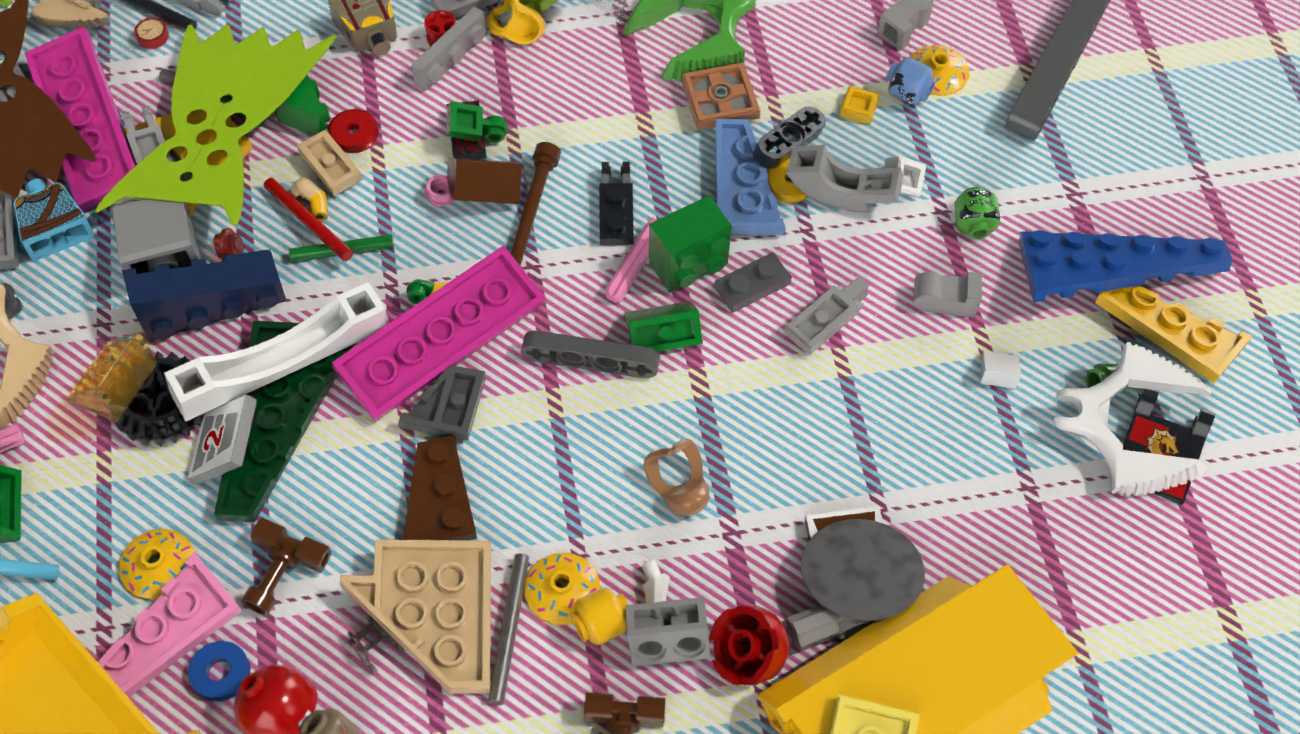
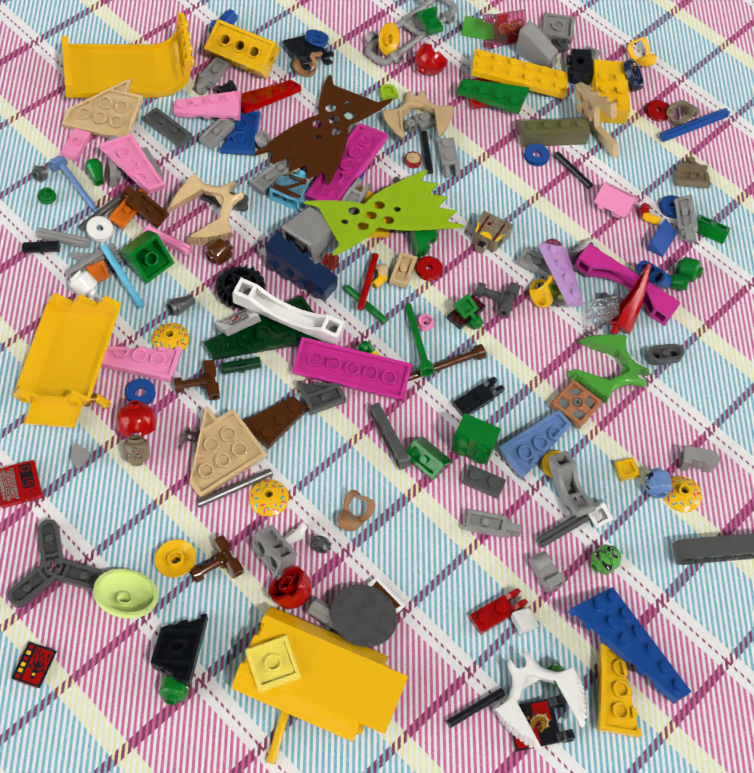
camera: 50 degrees right, 0 degrees up
(57, 386) = (219, 251): none -> reddish brown head
(110, 510) = (178, 305): none -> flat silver cone
(114, 377) = (232, 264): clear yellow slope -> none
(289, 504) = (229, 366): none -> dark green pin
(437, 24) = (508, 261): red wheel -> none
(449, 49) = (502, 275): light grey plate -> none
(484, 180) = (442, 335): reddish brown brick -> none
(486, 70) = (505, 298): none -> dark grey bar
(520, 233) = (425, 367): none -> green piece
(600, 616) = (262, 517): yellow head -> none
(629, 267) = (445, 424): bright pink axle -> none
(701, 558) = (321, 544): none -> dark grey plate
(793, 126) = (584, 444): black beam -> none
(895, 239) = (560, 530): none -> dark grey axle
(964, 394) = (496, 612): none -> red hinge
(1090, 514) = (471, 710): none -> black bar

